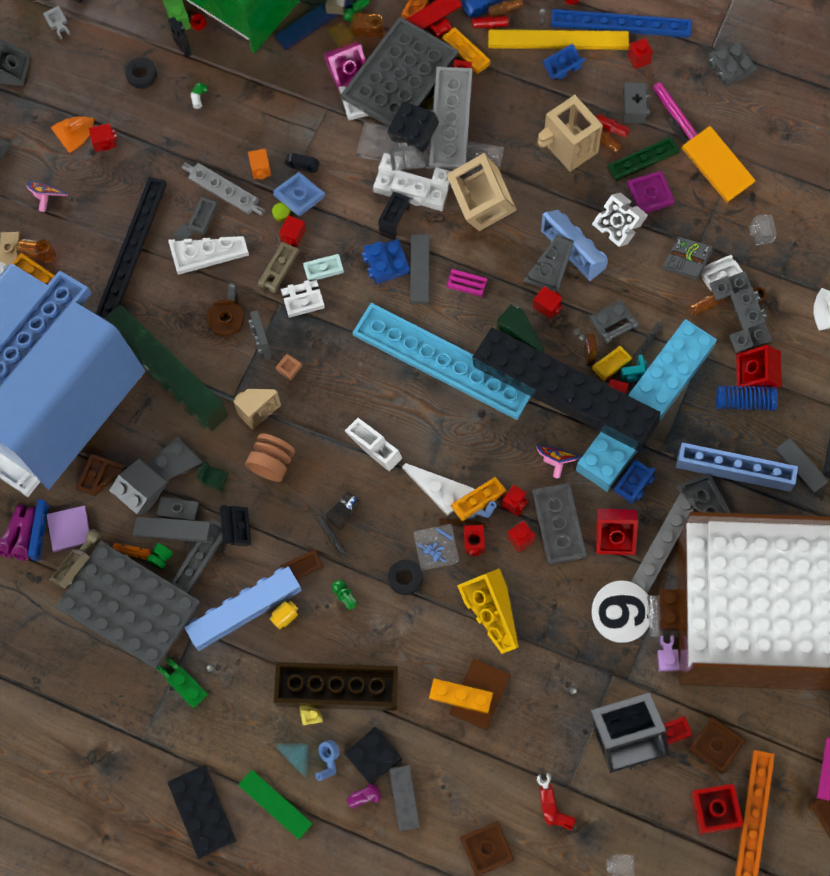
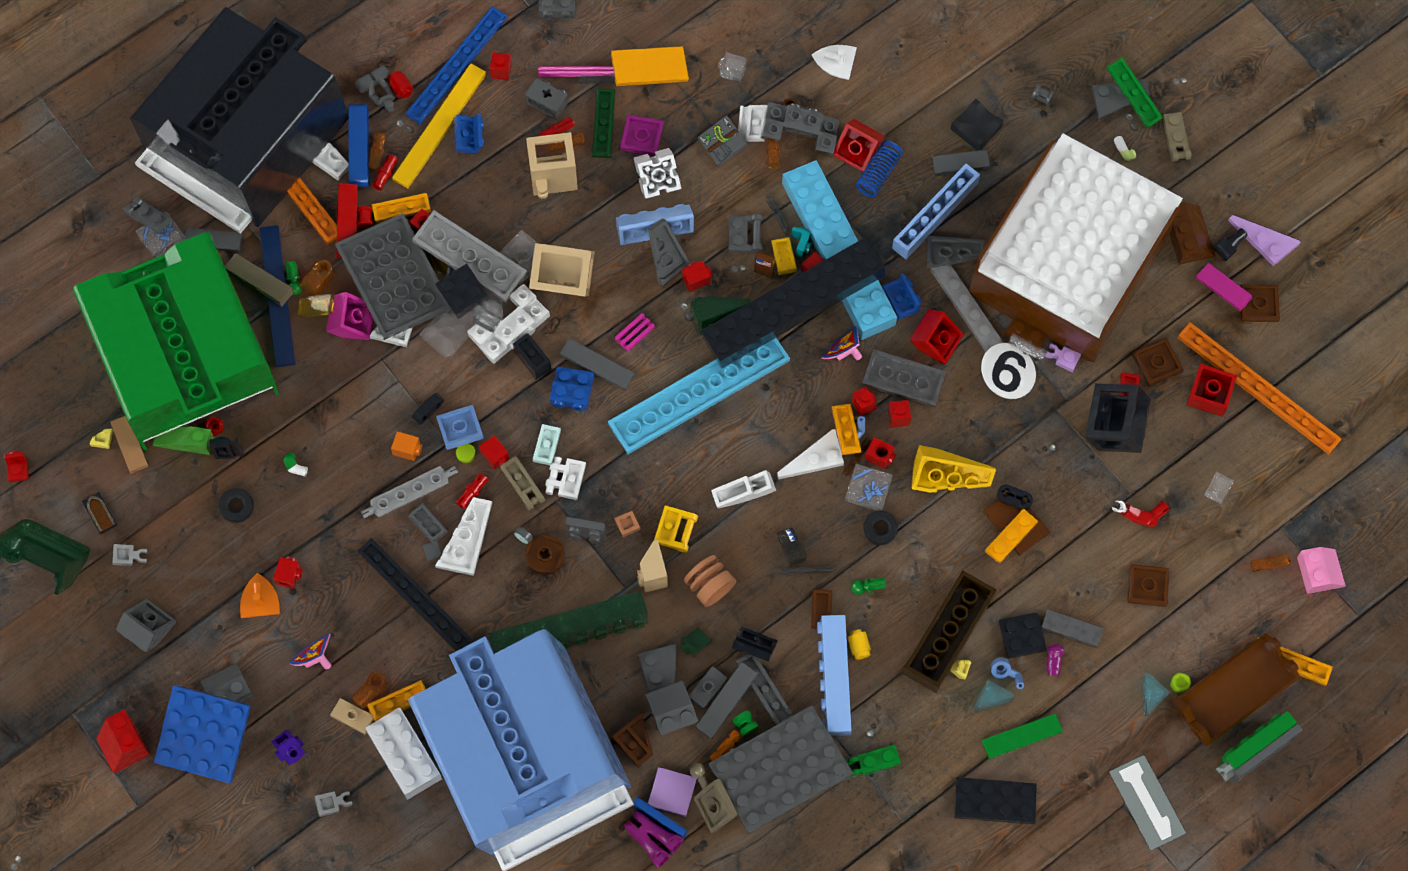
camera: 65 degrees left, 0 degrees up
(250, 233) = (471, 491): none -> red pin
(306, 401) = (669, 527): none -> yellow plate
(504, 679) = (1015, 493): none -> black beam

